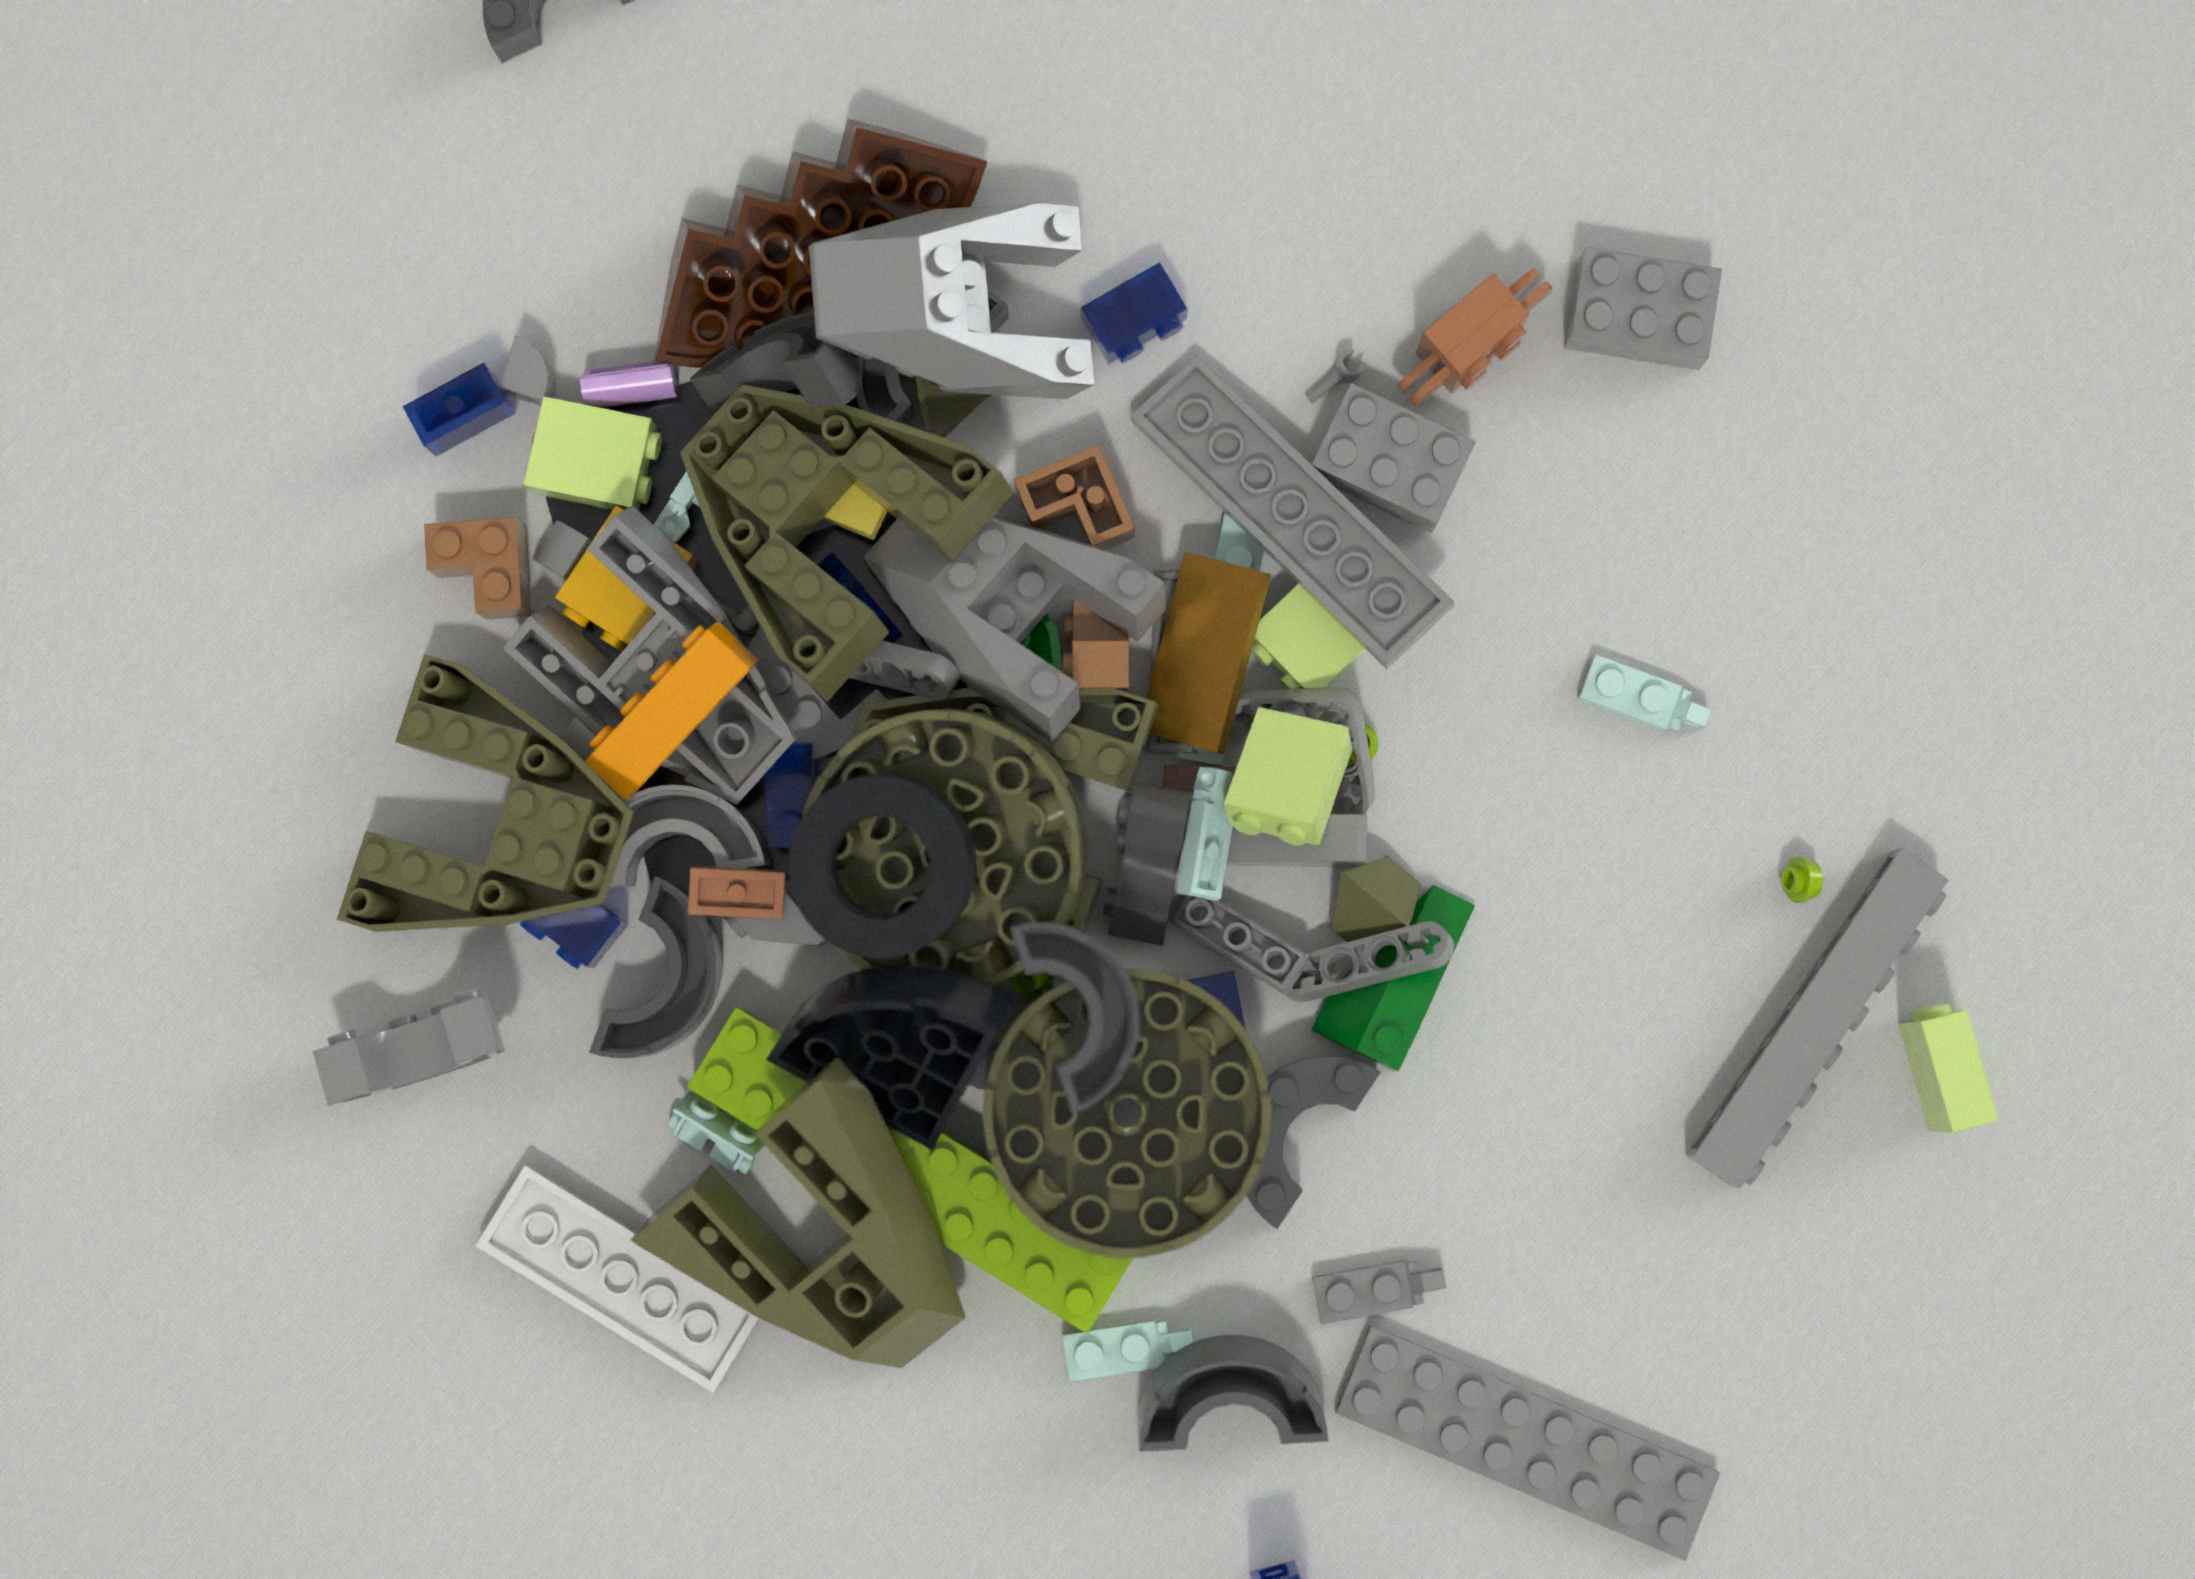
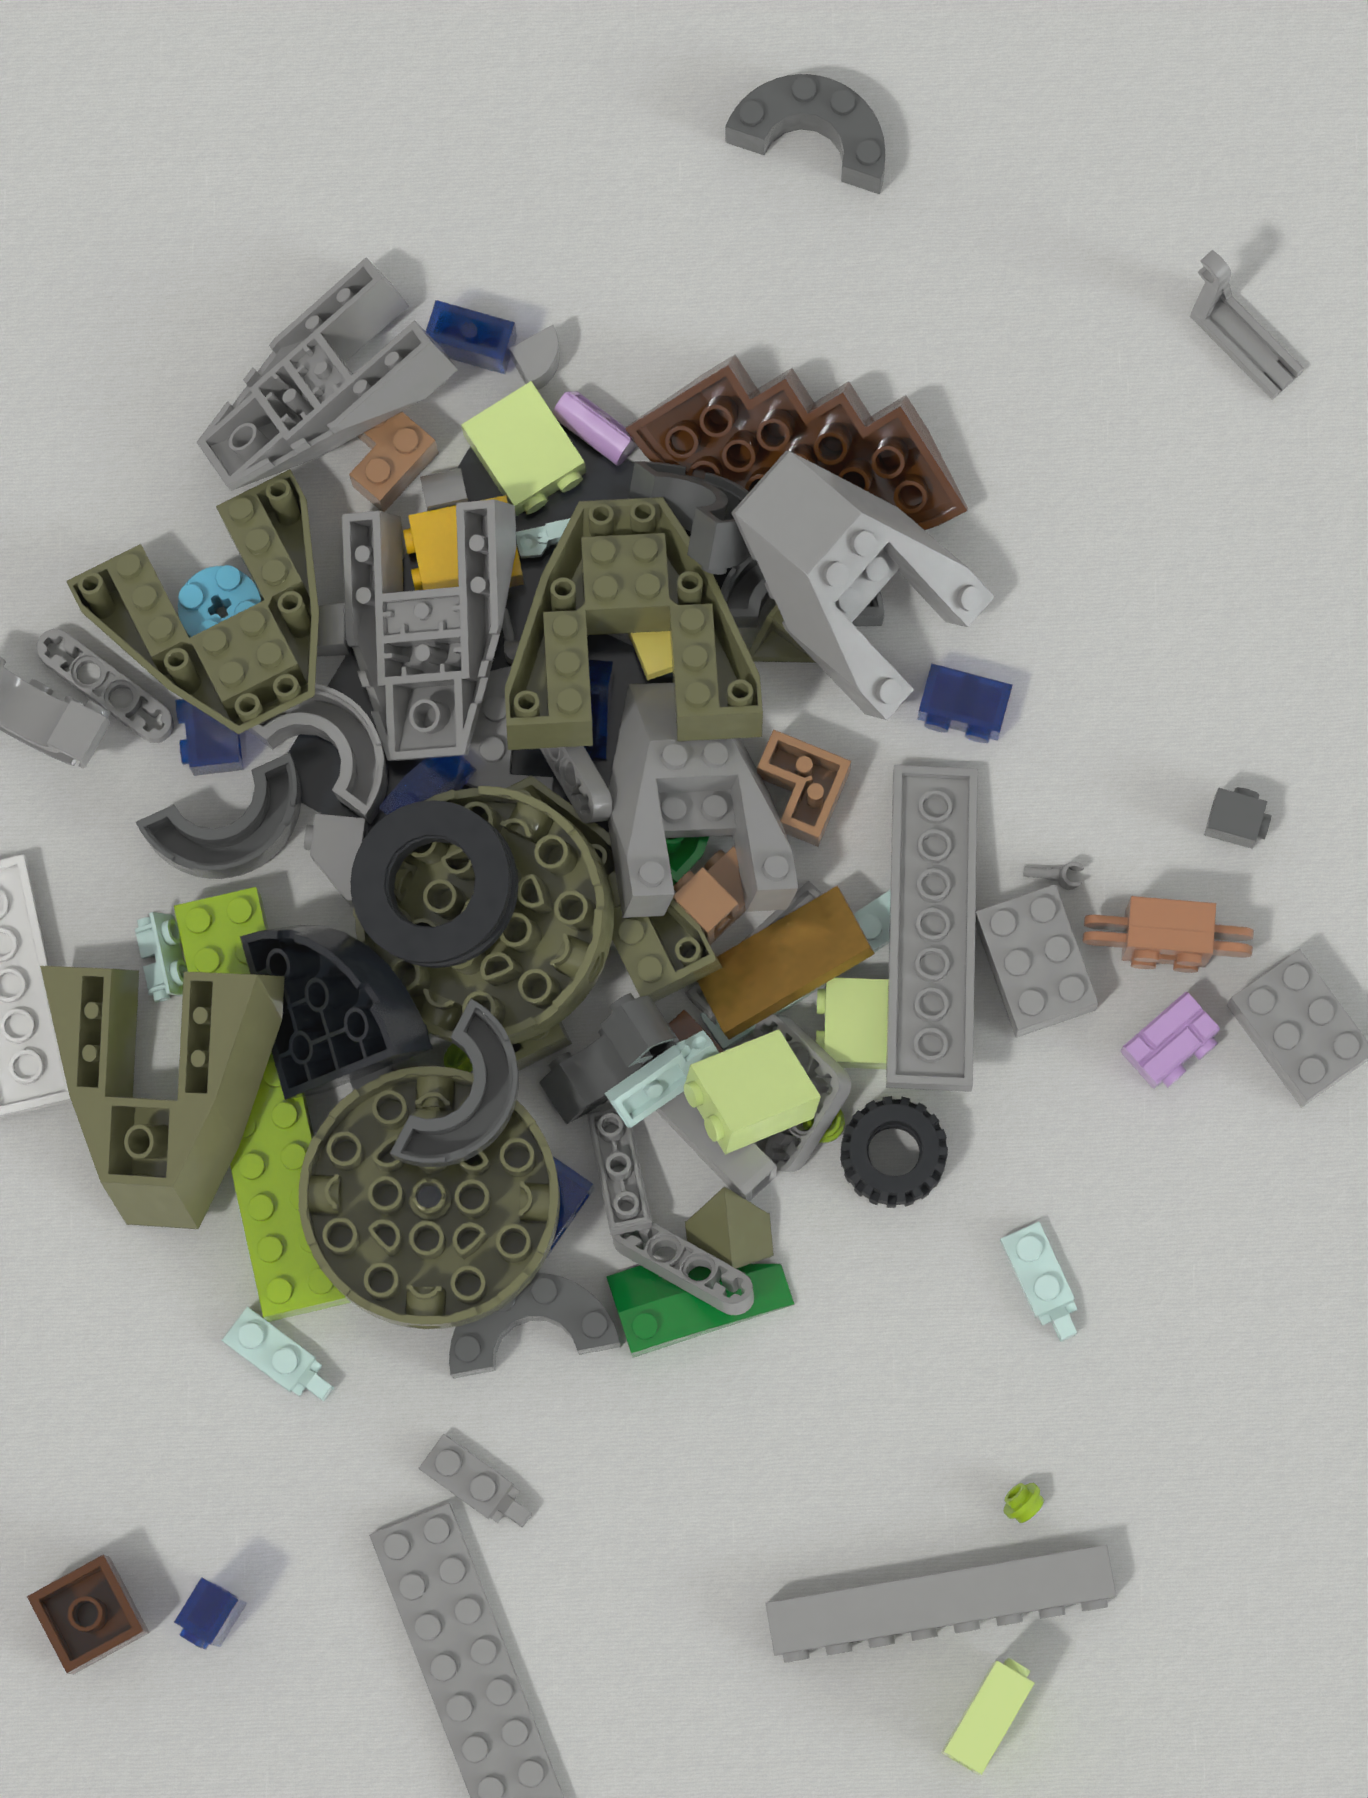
camera: 45 degrees right, 5 degrees down
(376, 583) = (306, 394): none -> light grey wedge
(451, 967) = (101, 690): none -> light grey beam
(459, 810) = (211, 590): none -> medium azure brick
(671, 710) = (405, 657): light orange brick -> none
(736, 892) = (329, 813): nougat plate -> none
(1225, 1373) = (331, 1438): dark grey brick -> none
(1432, 194) = (1238, 817): none -> dark grey brick
(1463, 685) = (893, 1115): none -> black tyre
(1555, 416) = (1170, 1041): none -> lavender brick

